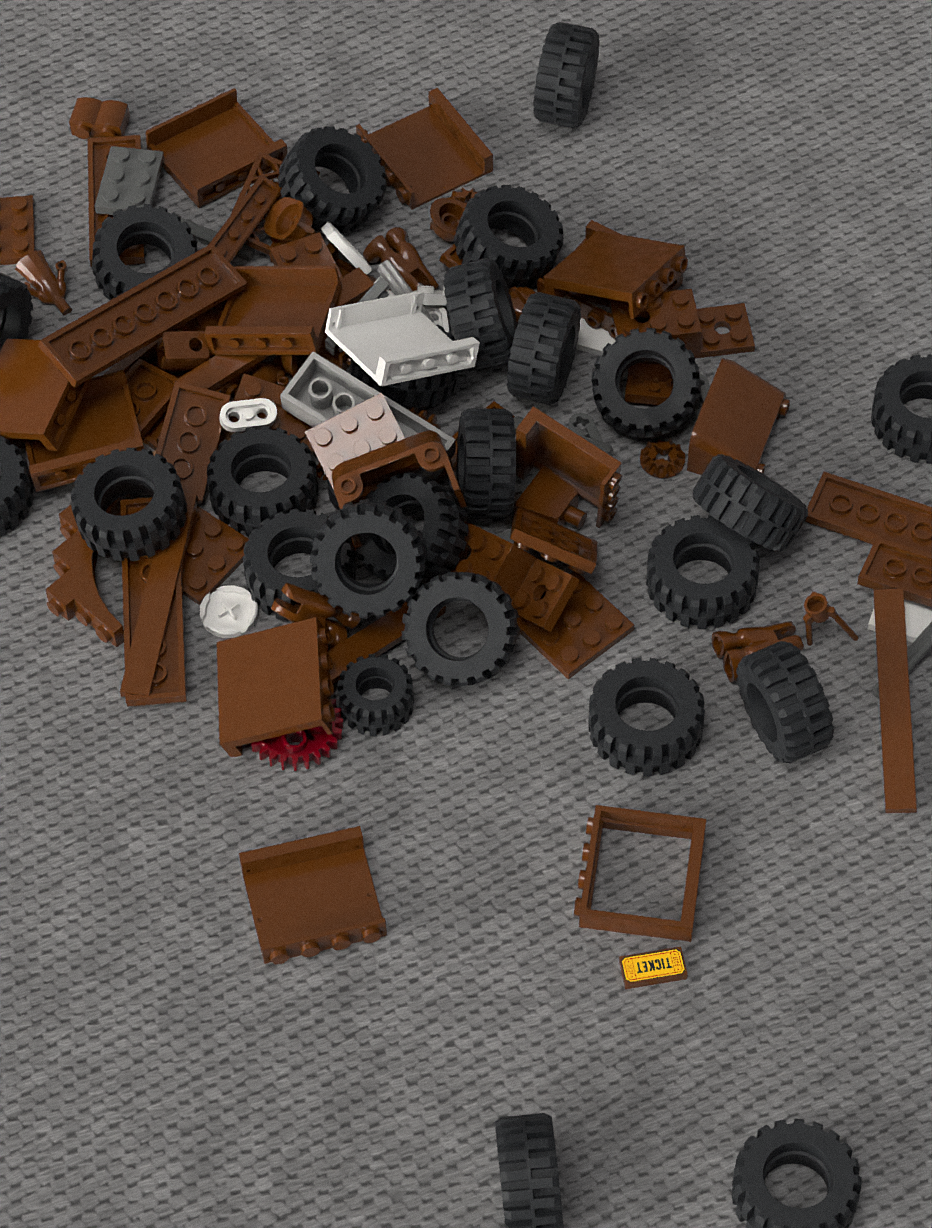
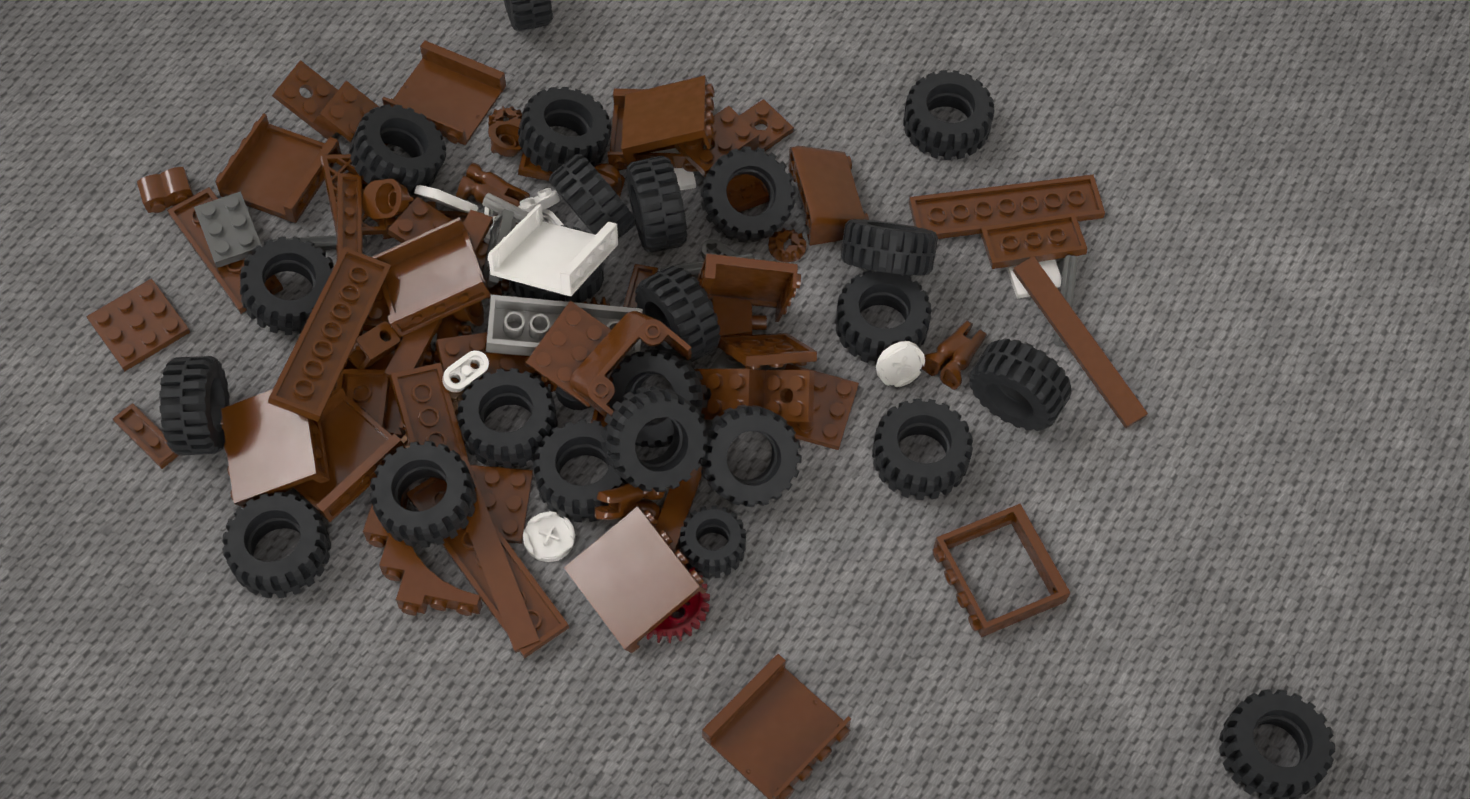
camera: 35 degrees left, 5 degrees up
(43, 280) = (210, 344): reddish brown piece -> none
(299, 109) = (327, 108): none -> reddish brown bracket
(653, 967) = (1056, 638): tile -> none
(685, 625) = (900, 364): none -> white tile
(819, 611) = (989, 303): reddish brown plant -> none

